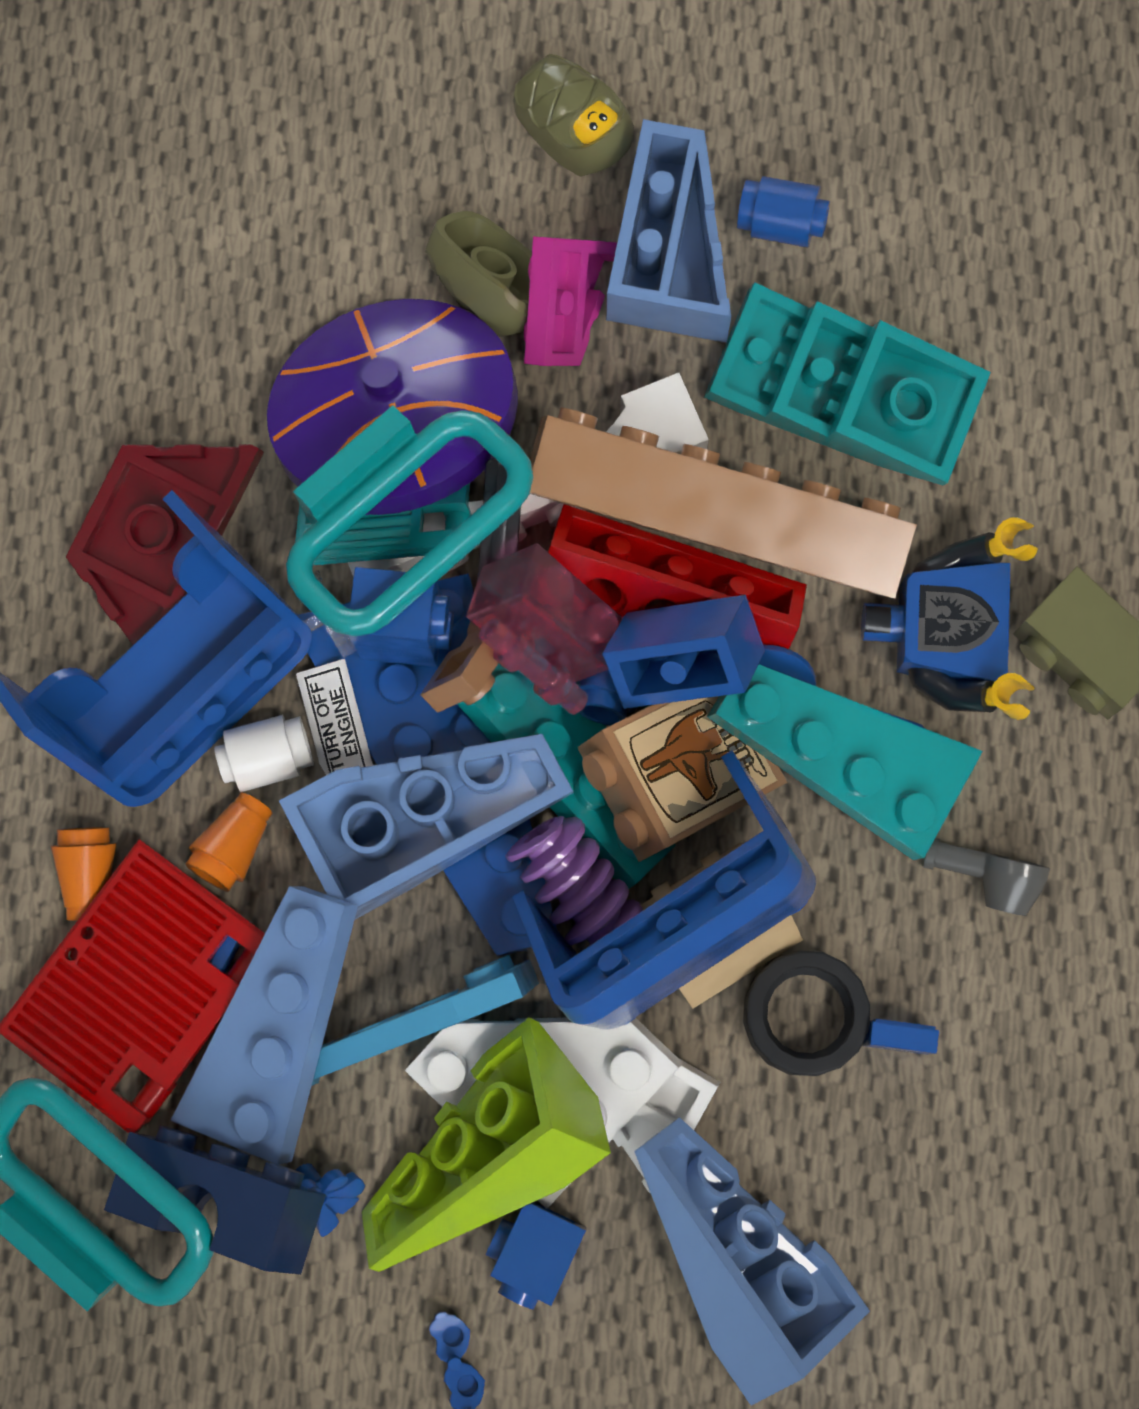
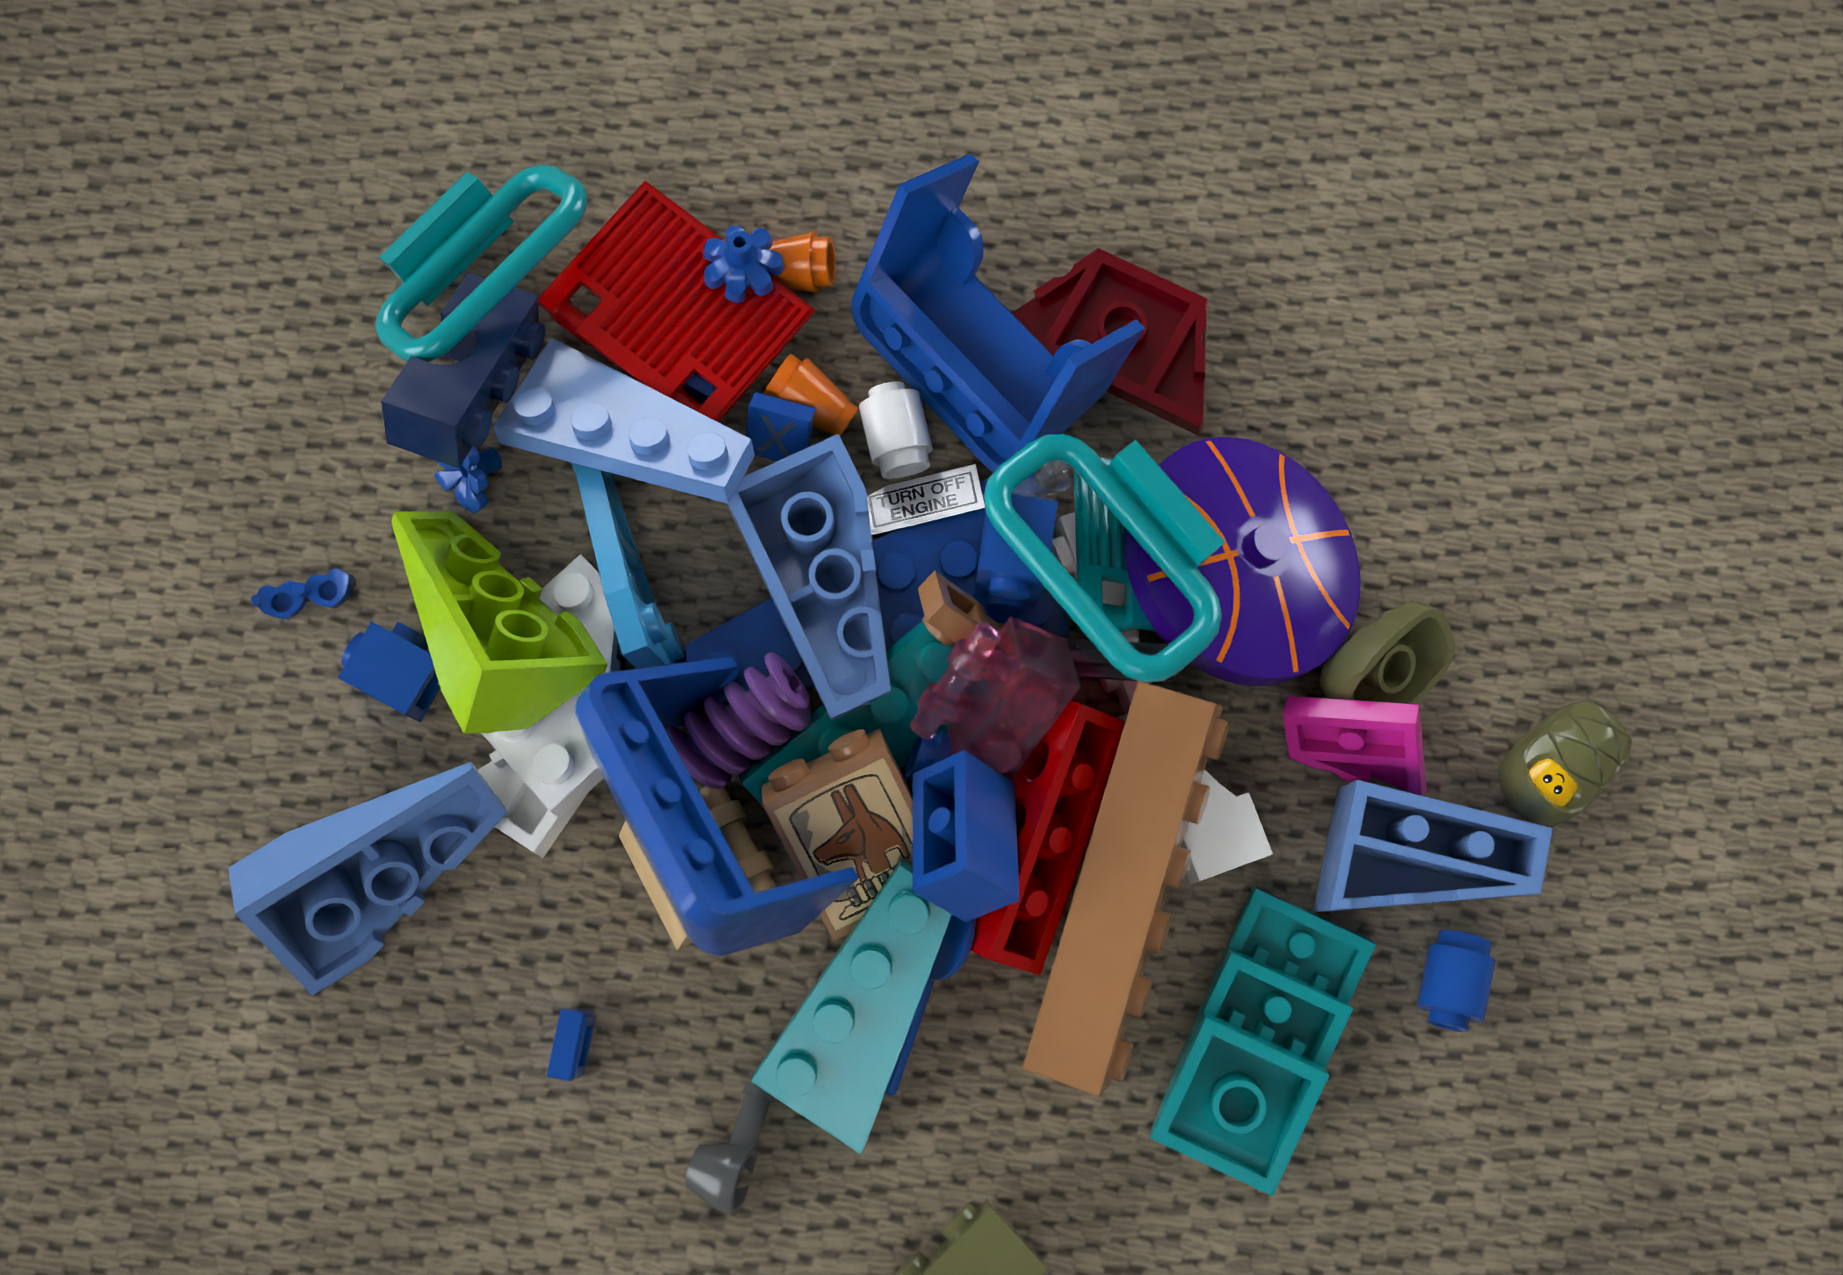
camera: 85 degrees right, 0 degrees up
(90, 916) = (742, 263): none -> blue plant
(266, 870) = (778, 426): none -> blue tile
(855, 1013) = (553, 944): black tyre -> none
(957, 623) = (995, 1135): torso -> none

